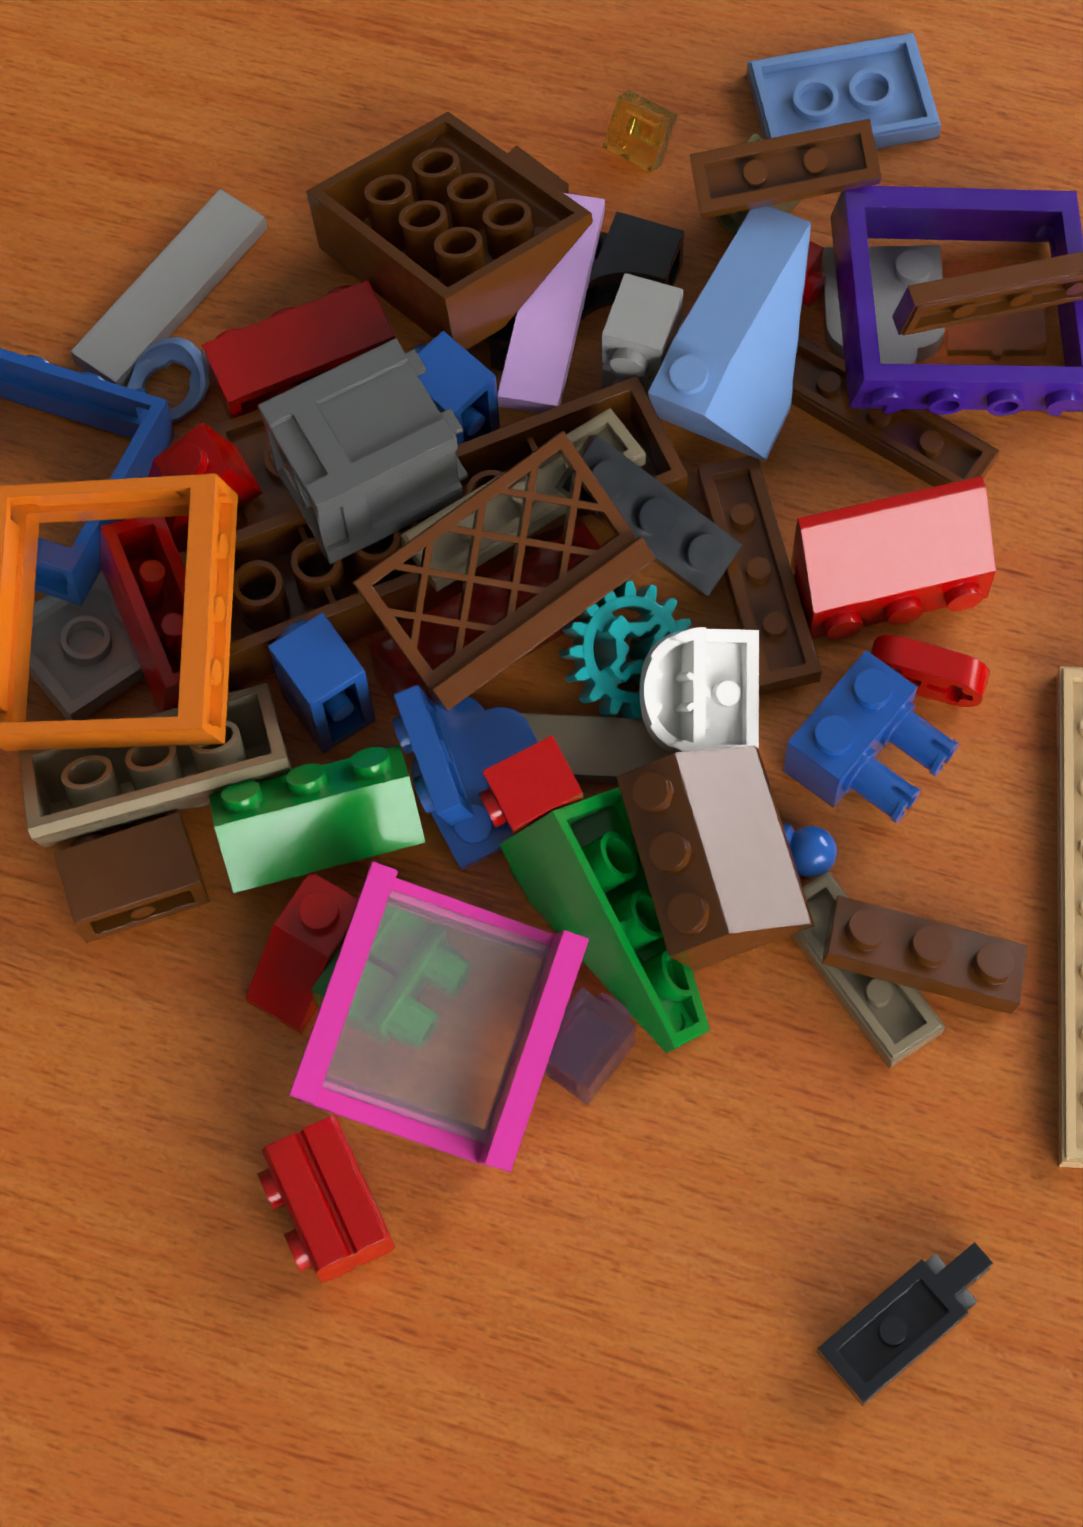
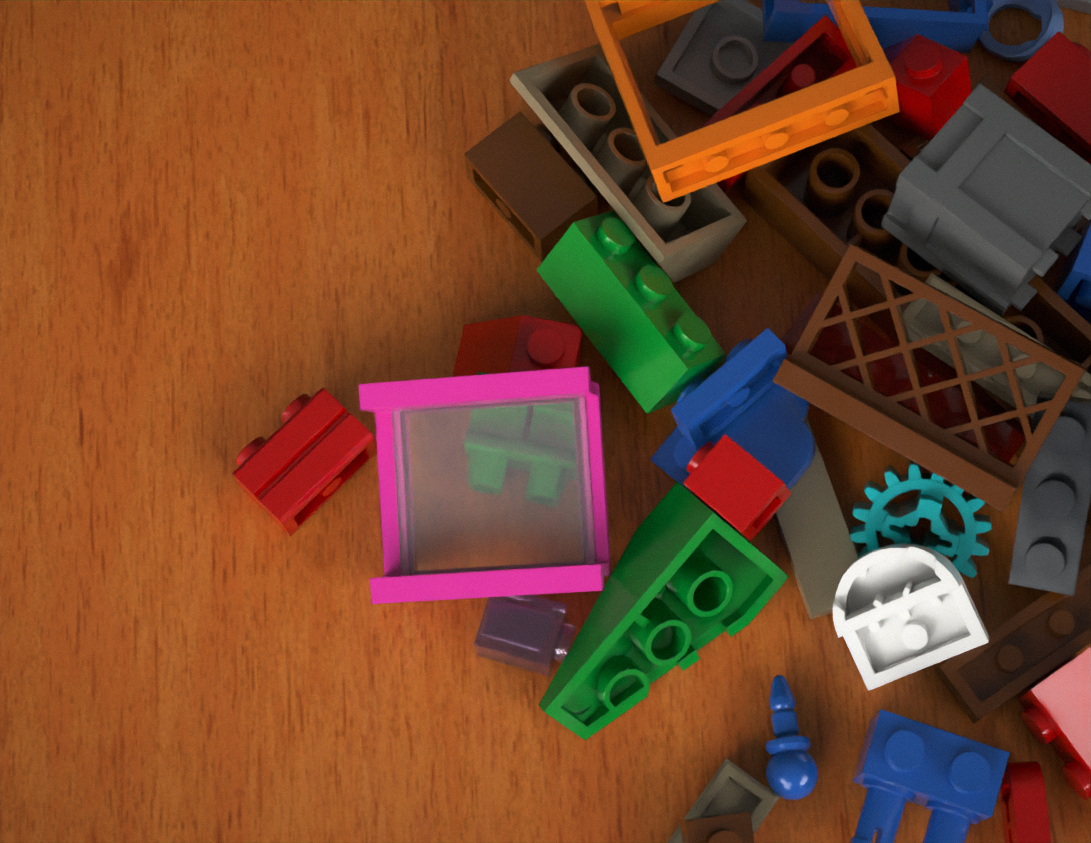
camera: 70 degrees right, 5 degrees up
(322, 681) = (768, 265): blue brick -> none
(714, 853) = (747, 680): slope -> none

